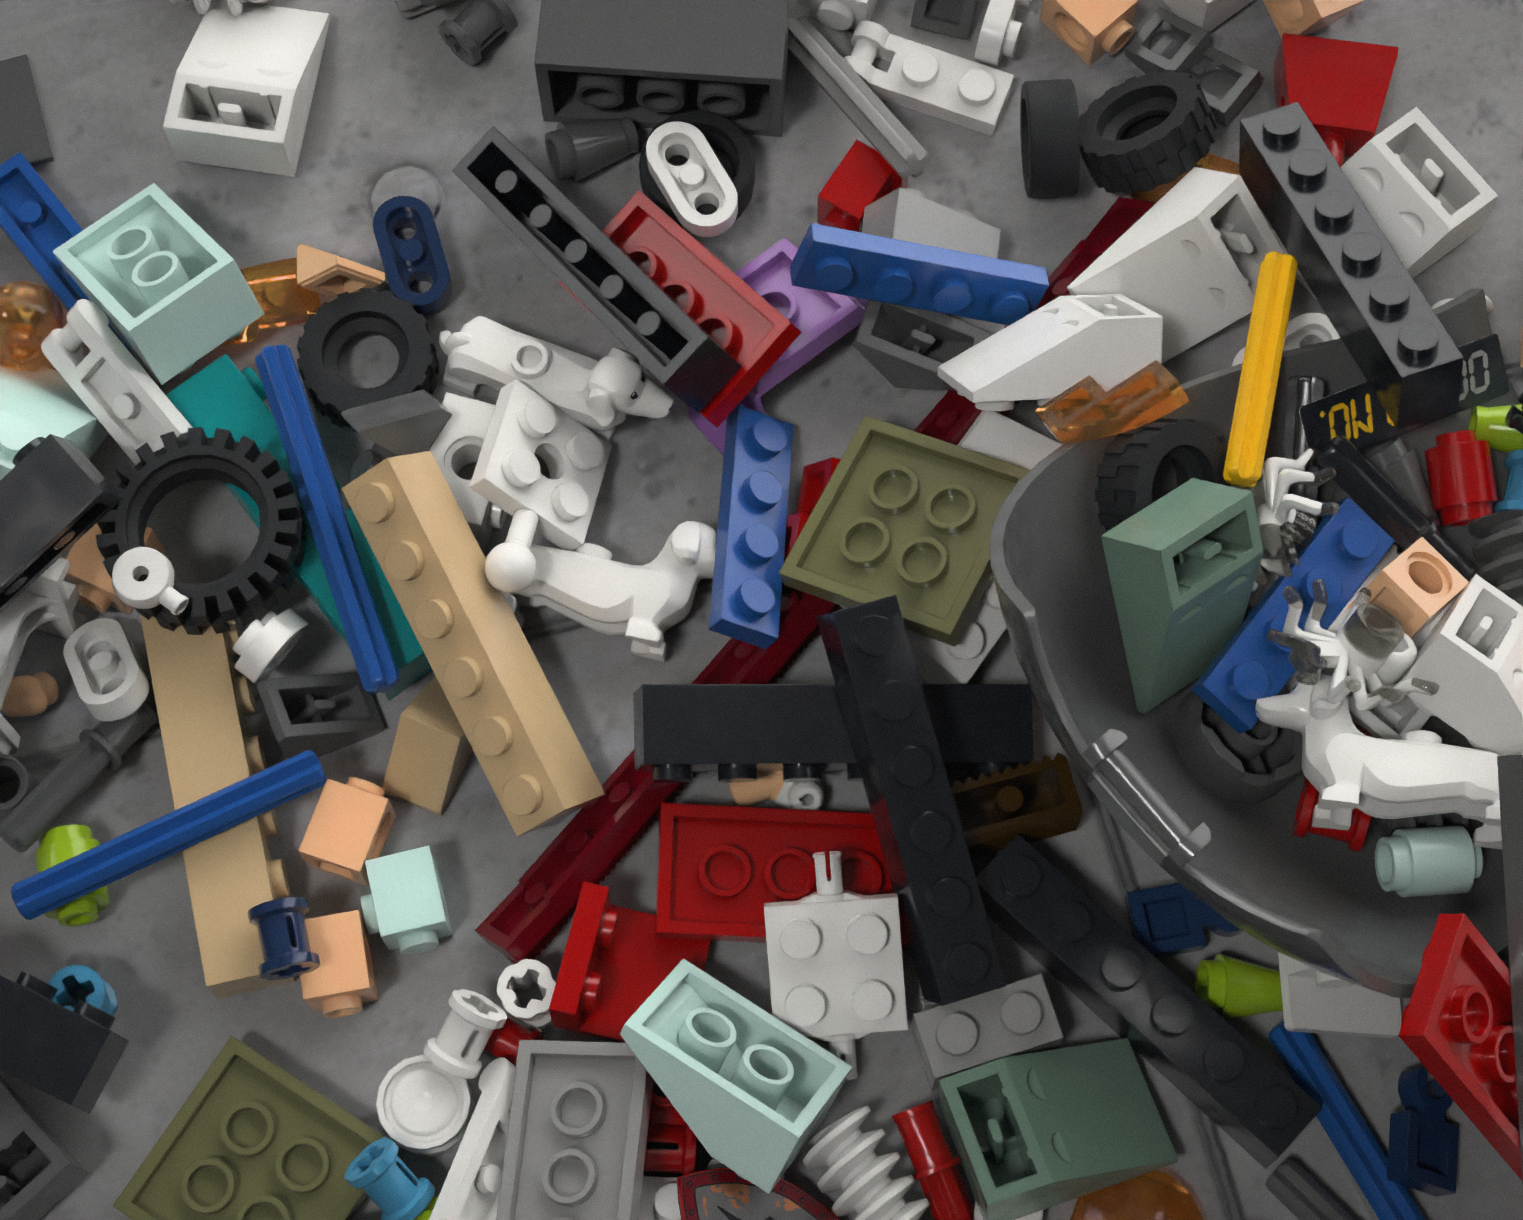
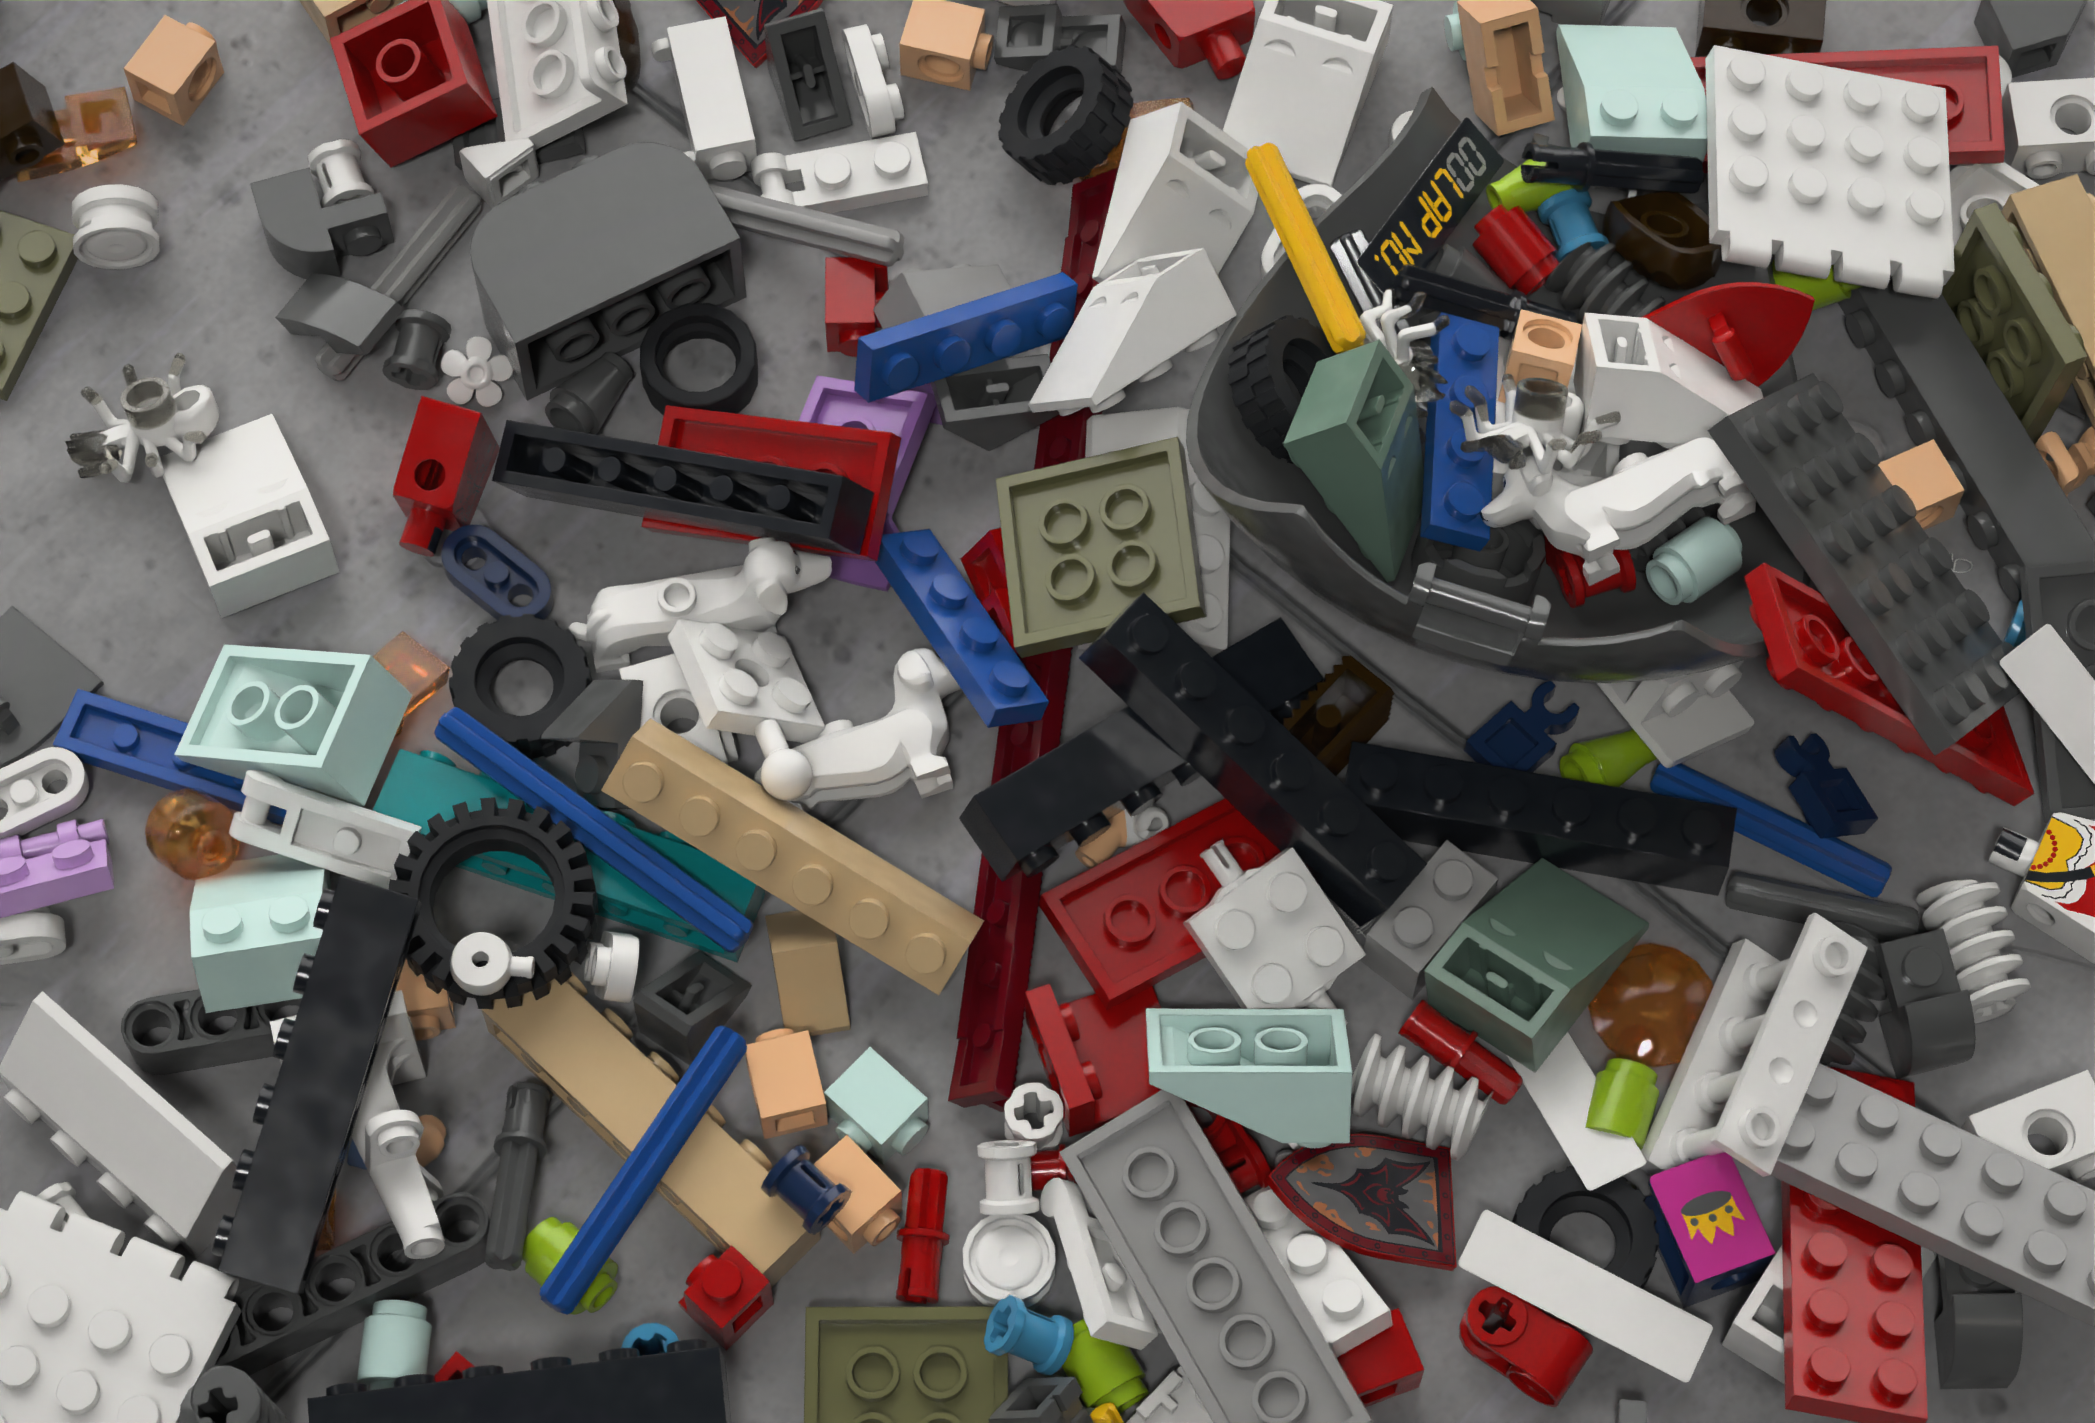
camera: 35 degrees left, 5 degrees down
(106, 670) = (480, 1075): white plate -> none
(172, 984) = (726, 1296): none -> red brick
(332, 273) = (442, 629): light nougat slope -> none
(370, 1037) = (923, 1237): none -> red axle
(417, 140) = (442, 472): none -> red torso
(512, 73) = (476, 372): none -> white plant
(693, 183) = (714, 368): white plate -> none
(1050, 138) = (988, 165): black tyre -> none
(1092, 413) = (1200, 356): clear orange slope -> none
(1350, 267) = (1319, 124): black brick -> none

